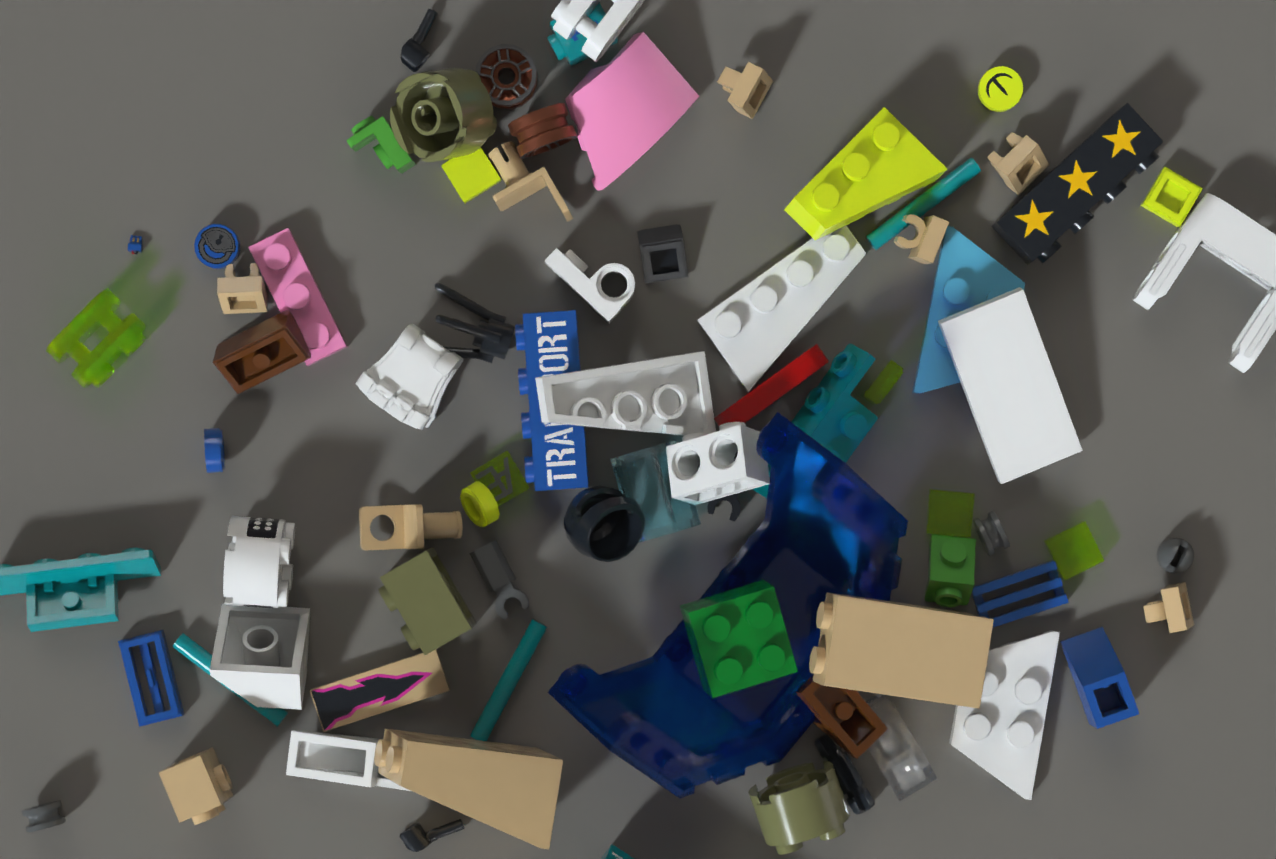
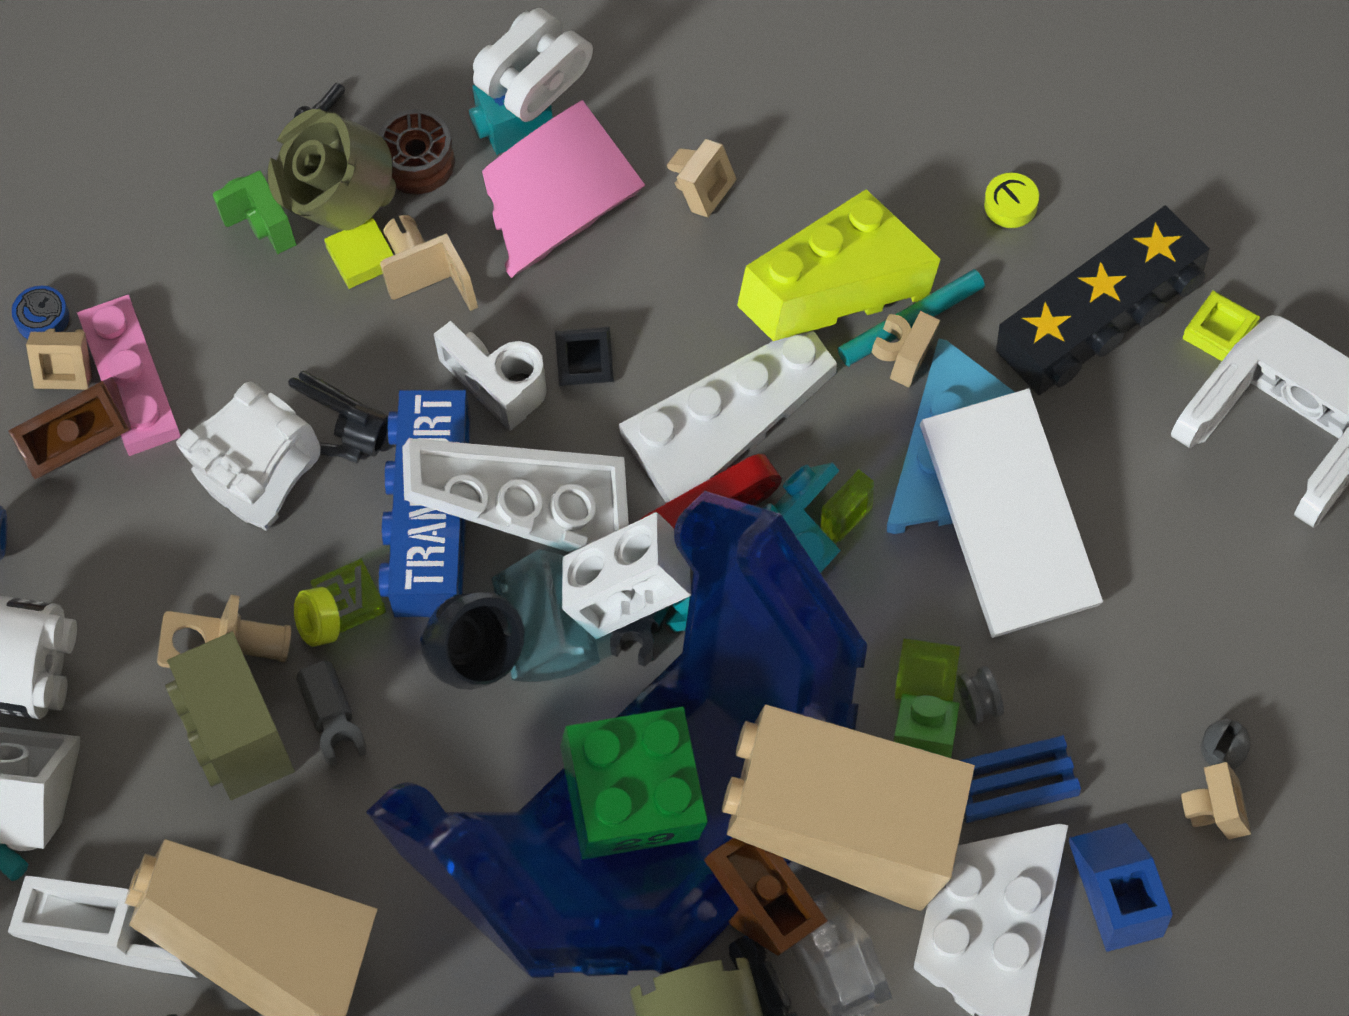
camera: 10 degrees right, 25 degrees down
(379, 690) = (115, 848): tile -> none
(508, 681) = (337, 826): teal bar -> none
(542, 130) = (450, 201): copper wheel -> none
(1021, 164) = (1030, 271): tan tile -> none
(1074, 550) = (1090, 728): clear neon green tile -> none

